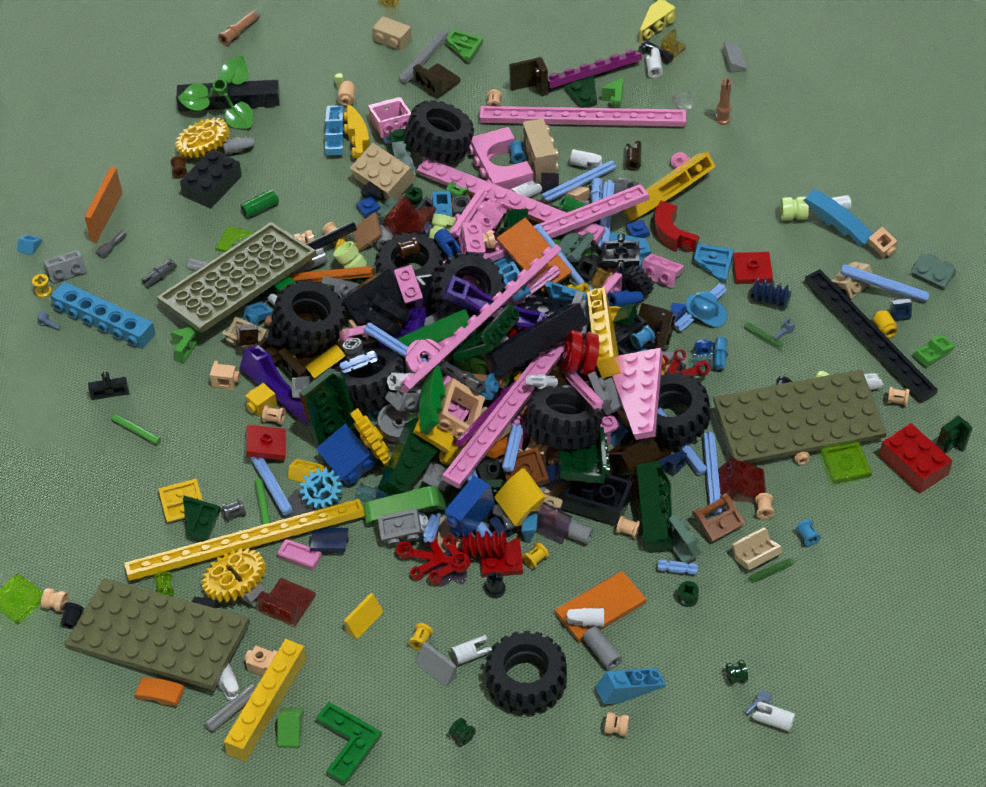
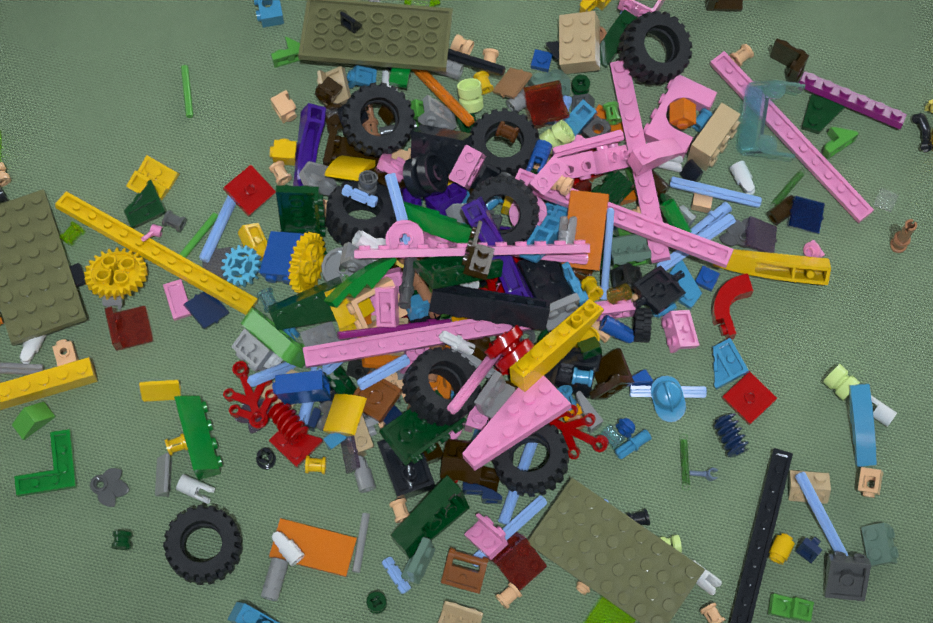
camera: 45 degrees right, 20 degrees up
(108, 387) = (207, 43): black plate -> none
(211, 280) = (349, 22): none -> black slope
(227, 528) = (155, 230): none -> bright pink hand
(408, 709) = (112, 487): none -> dark grey plate
(442, 618) = (198, 436): none -> green slope
(469, 398) = (387, 306): none -> bright pink slope
(491, 303) = (480, 256): none -> bracket
(503, 153) = (682, 113): none -> orange brick
(518, 186) = (653, 155): none -> bright pink slope
(525, 264) = (567, 230): none -> light grey hinge
(565, 130) = (751, 135): none -> clear light blue windscreen
(617, 146) = (786, 188): none -> bright green piece
(629, 573) = (361, 542): none -> light grey bar
(637, 177) = (761, 235): none -> clear purple piece
(650, 145) = (806, 214): none -> clear blue piece
(654, 64) = (905, 142): white hinge -> none
(705, 484) = (486, 536): none -> bright pink bracket
(942, 300) = (847, 576): none -> dark grey plate

